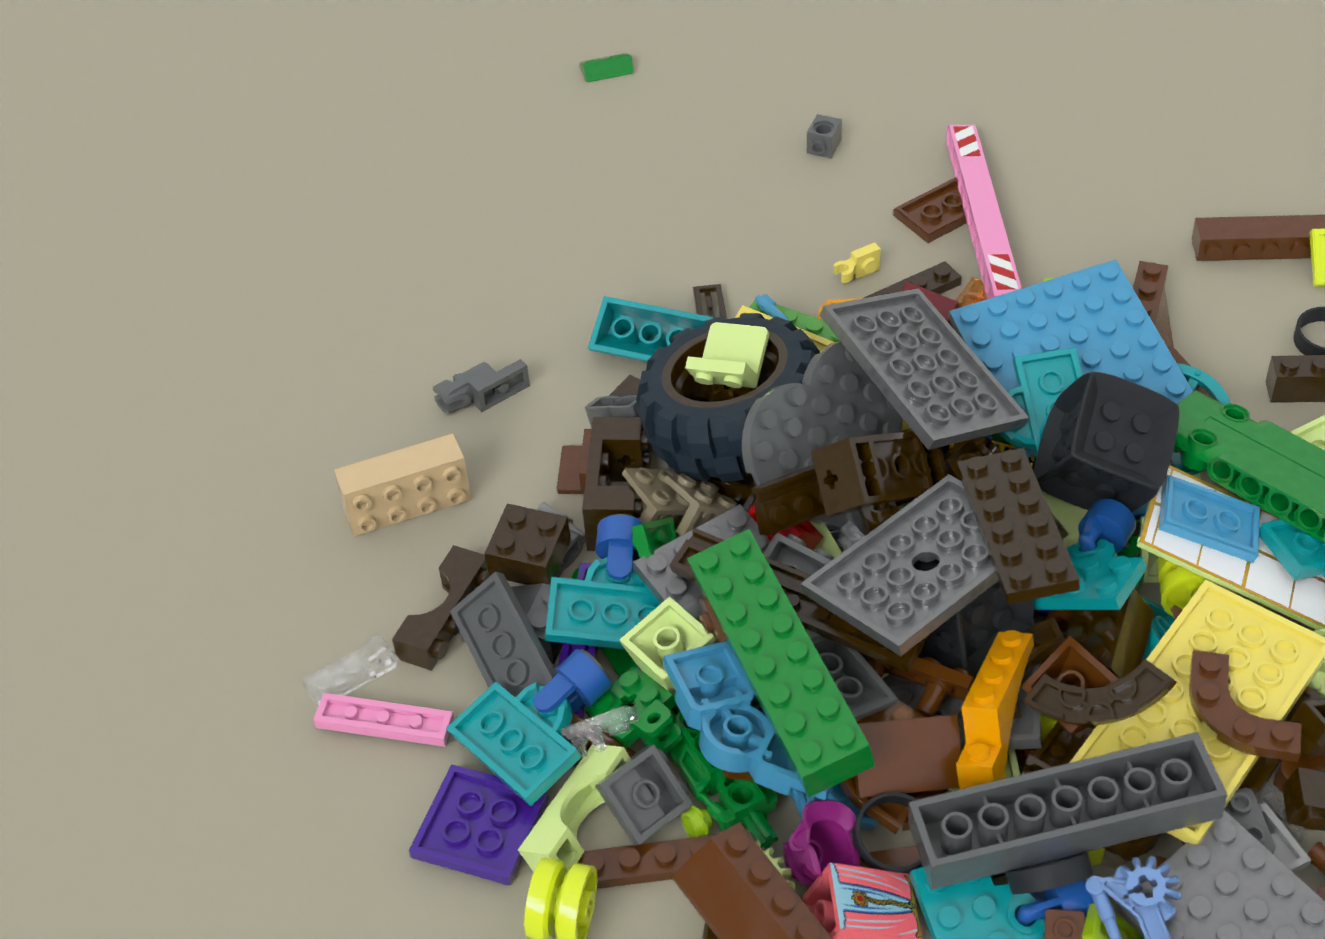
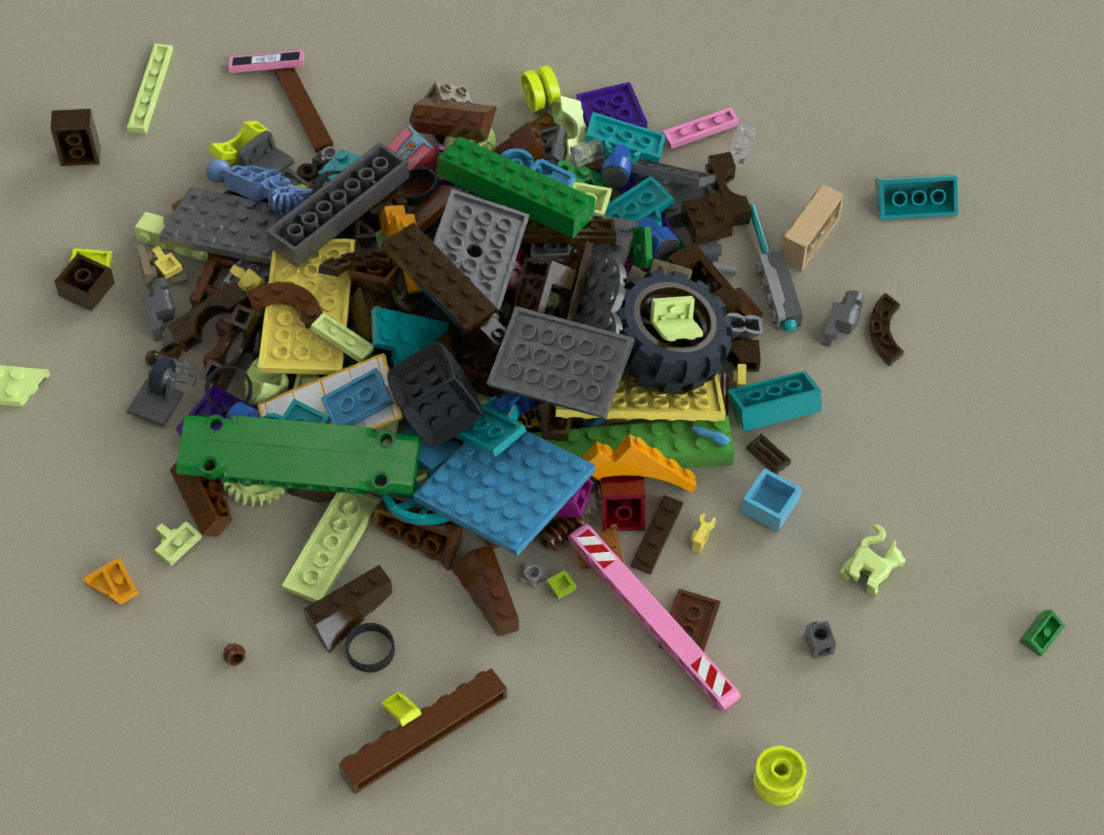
camera: 140 degrees right, 10 degrees up
(227, 473) = (917, 196): none -> teal slope
(456, 358) = (880, 329): none -> dark brown tile
(510, 461) = (776, 282): none -> piece
(671, 798) = (529, 140): none -> reddish brown brick
(714, 164) = (871, 563): none -> yellowish green animal
(758, 249) = (771, 500): none -> medium azure piece
(964, 62) = (779, 775): none -> neon yellow wheel
(1184, 607) = (342, 337): none -> yellowish green plate
(1273, 814) = (248, 279): none -> light yellow plate

